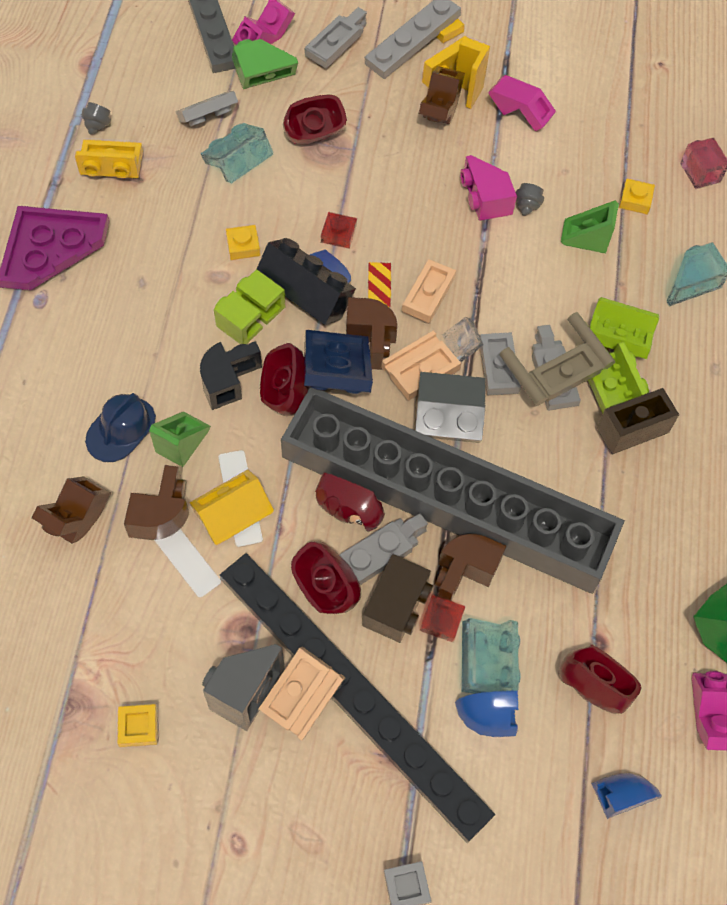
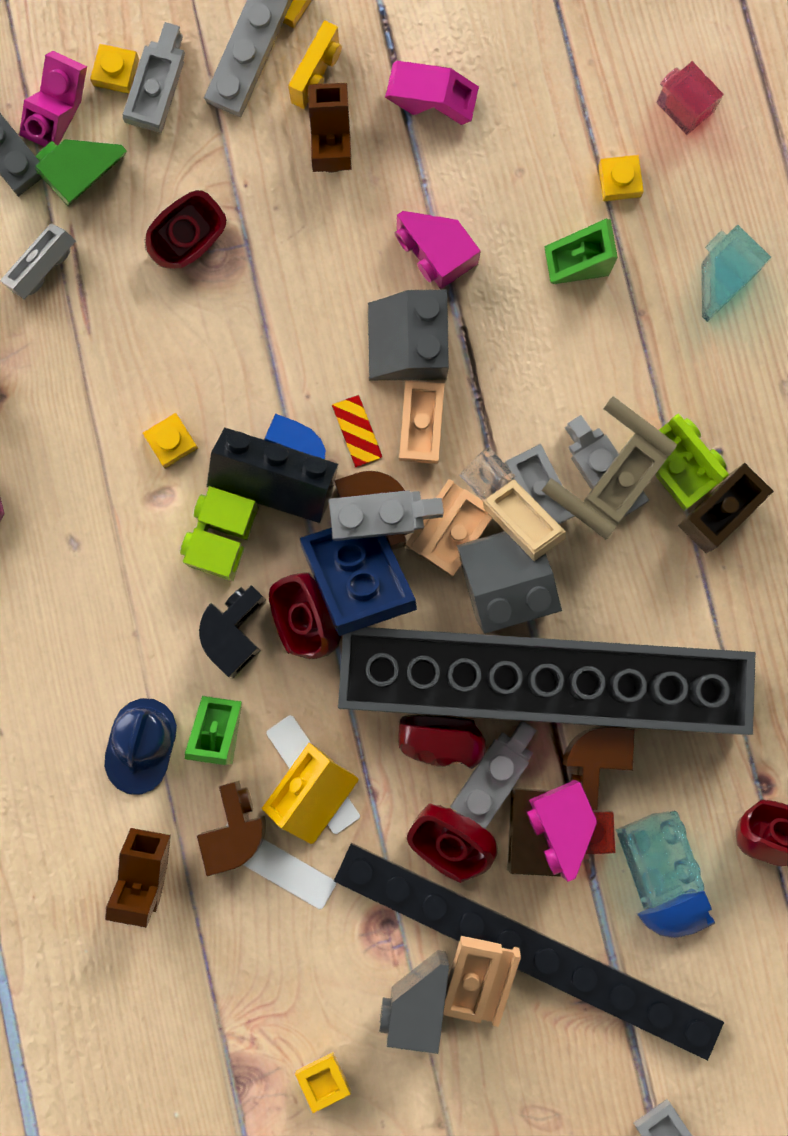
camera: 20 degrees left, 20 degrees up
(238, 151) = (106, 311): clear light blue bracket -> none
(311, 24) = (114, 68): none -> yellow plate
(338, 230) = (278, 375): clear red plate -> none
(373, 327) = (381, 514): none -> light grey hinge
(423, 586) = (566, 824): none -> dark pink slope
(444, 234) = (409, 336): none -> dark grey slope
(473, 62) = (353, 66): yellow panel -> none
(478, 370) = (524, 520): none -> tan tile
(529, 198) = (492, 238): dark grey plate -> none
(620, 323) = (667, 386): lime bracket -> none

